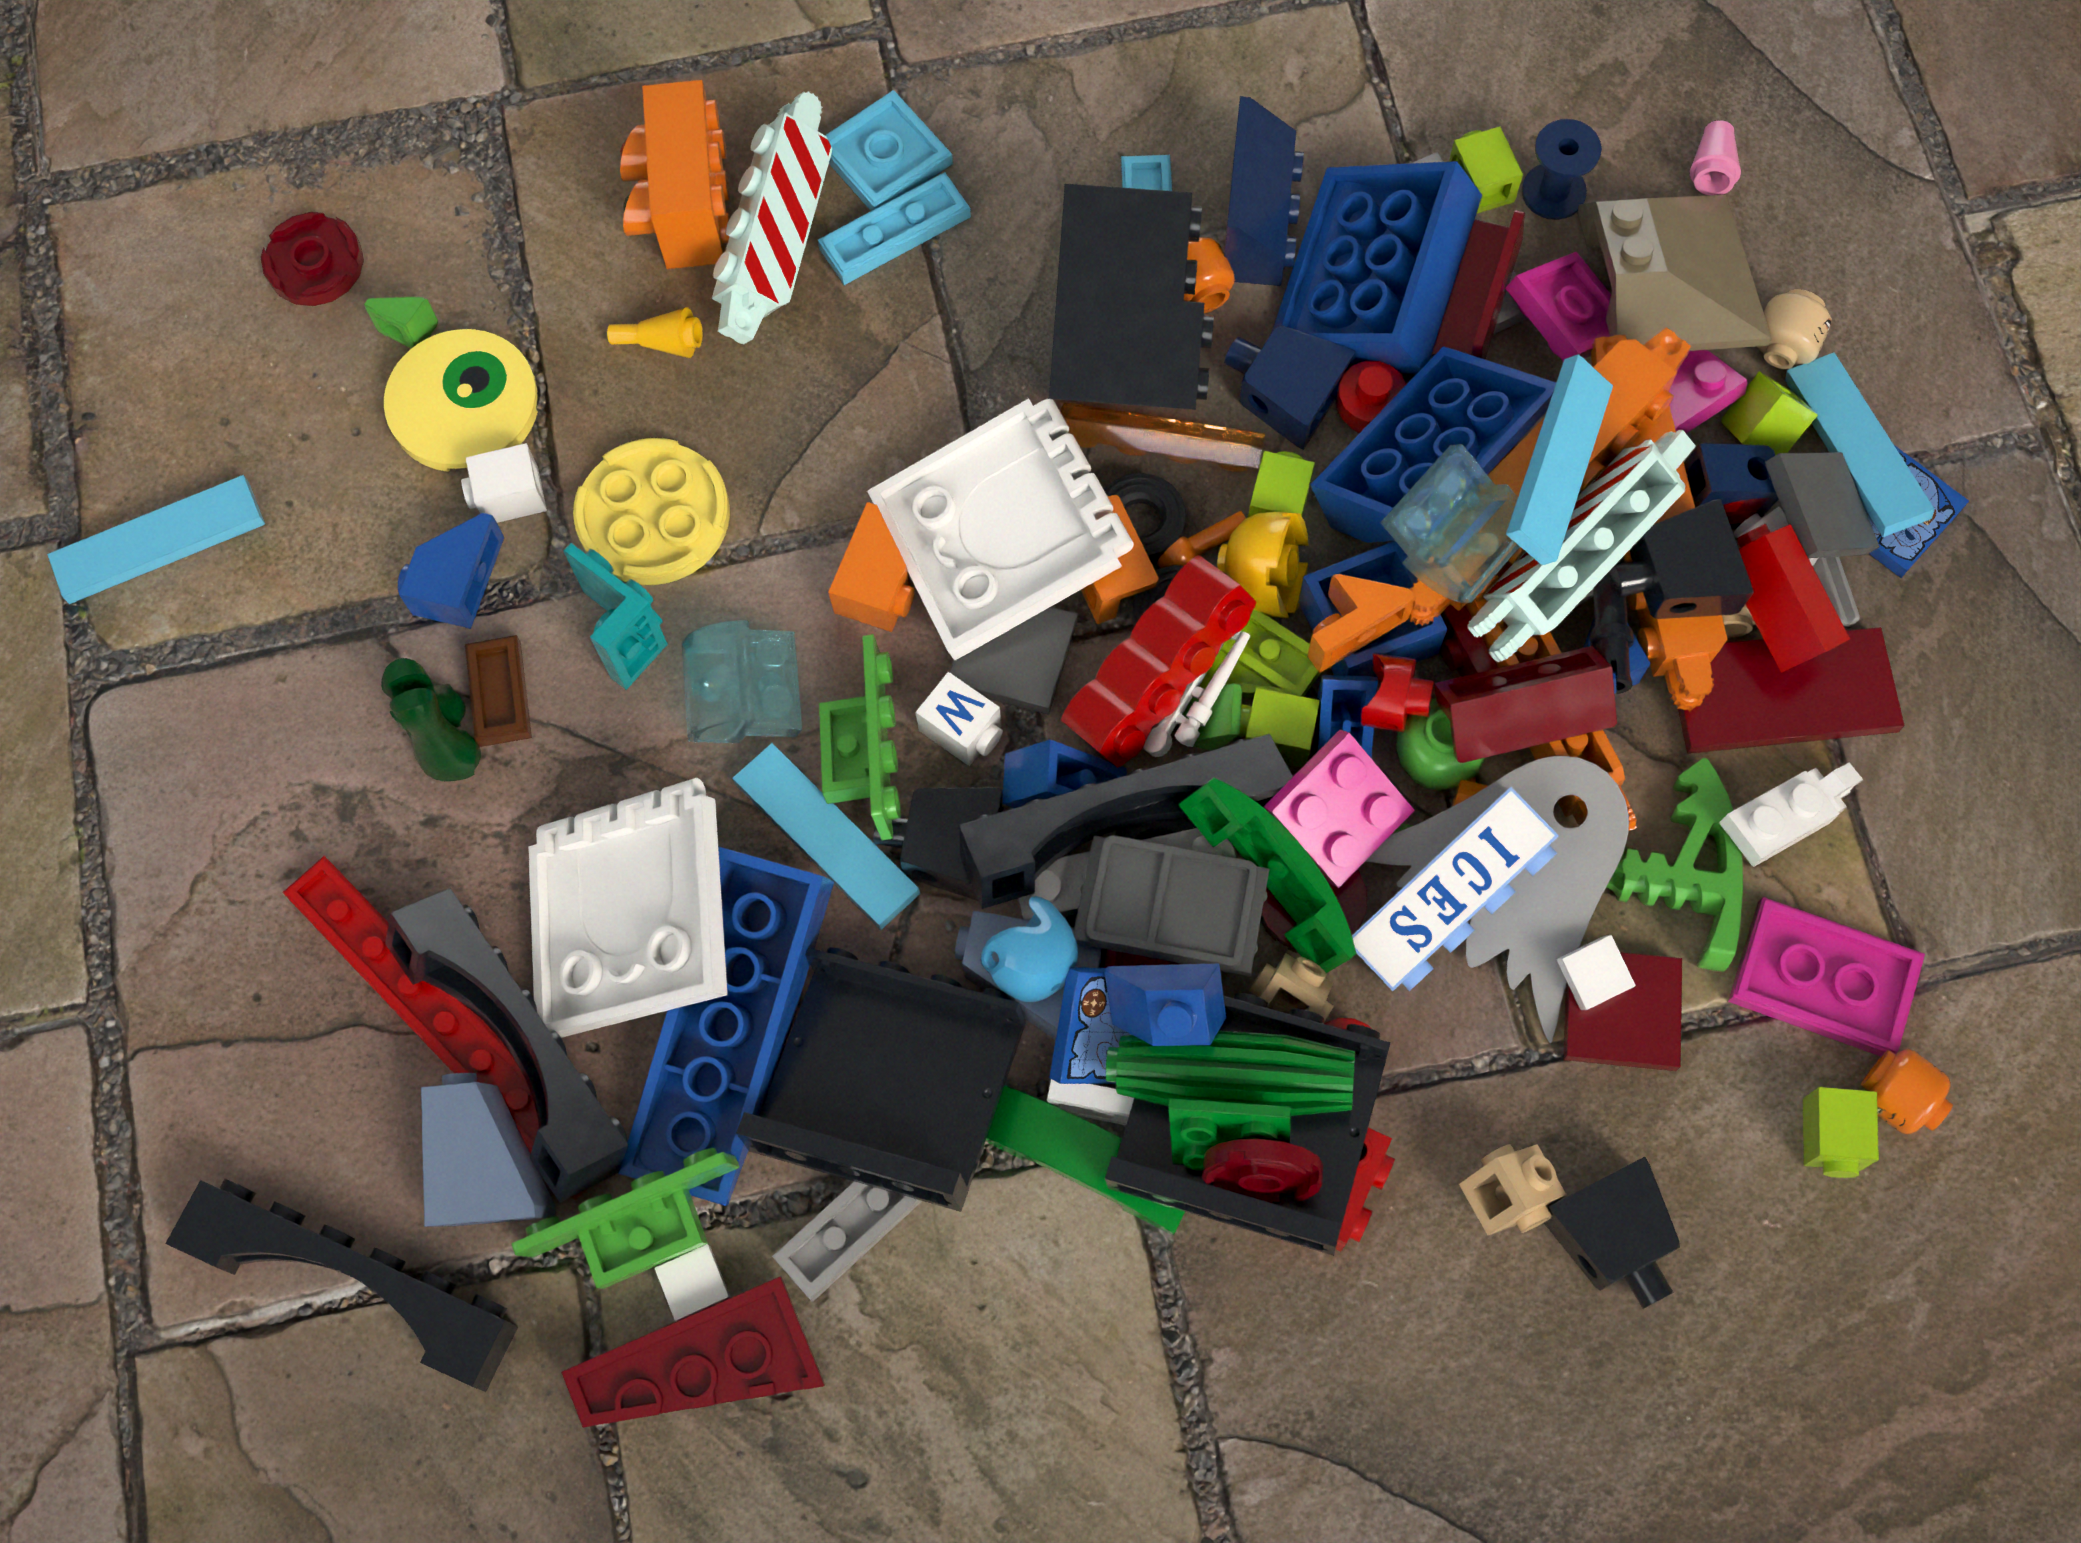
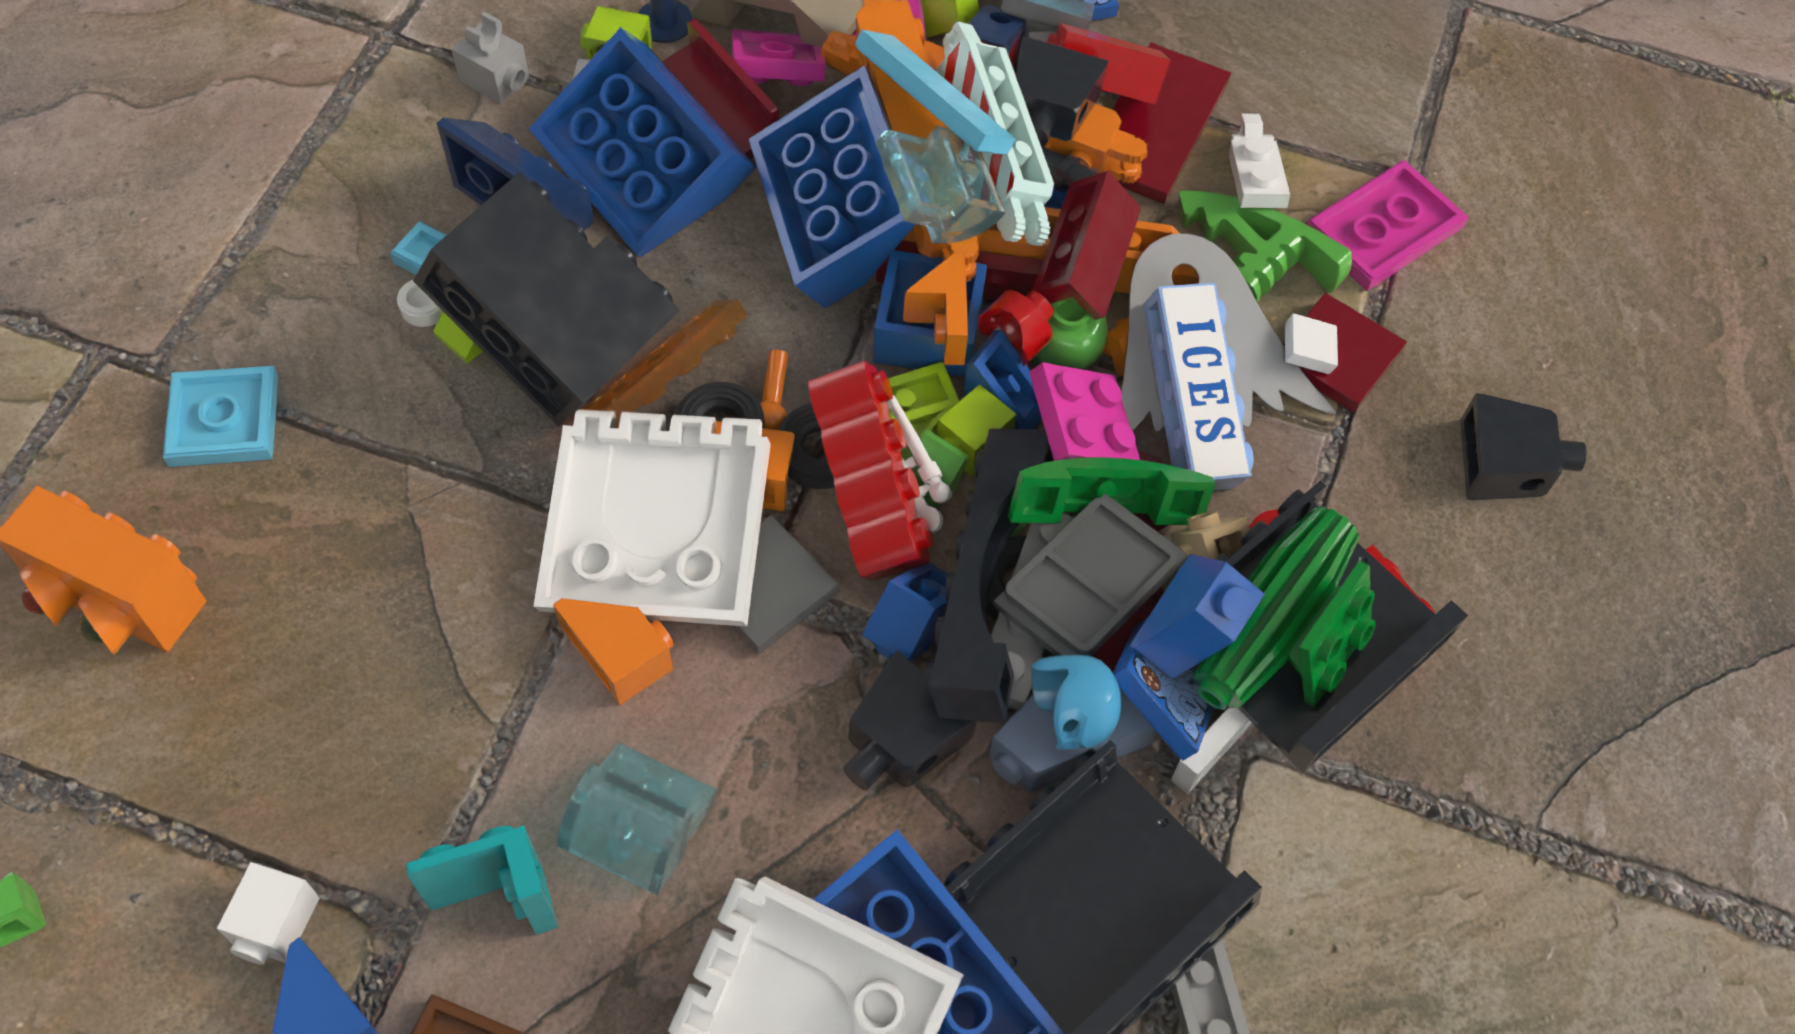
camera: 65 degrees left, 10 degrees down
(460, 398) = (137, 911): light yellow tile -> none
(652, 511) = (396, 797): light yellow tile -> none
(670, 333) = (238, 682): yellow cone -> none
(772, 218) = (211, 527): light aqua hinge -> none
(826, 836) = (826, 828): medium azure tile -> none
(856, 743) = (771, 745): bright green bracket -> none
(894, 228) = (299, 450): medium azure tile -> none
(960, 720) = (803, 654): white brick -> none
(1069, 1148) = (1245, 788): green slope -> none
(1263, 1169) = (1381, 622): dark red tile -> none
(1266, 560) = (826, 344): yellow cylinder -> none
(1281, 483) = (778, 315): lime brick -> none
(1290, 380) = (691, 253): dark blue torso -> none
(1366, 391) = (743, 215): red piece -> none
(1377, 88) = (490, 60): none -> light grey brick
(1513, 1189) = (1466, 494): tan brick -> none
(1840, 1131) = (1509, 277): lime brick -> none
(1909, 1091) = (1499, 225): orange head -> none

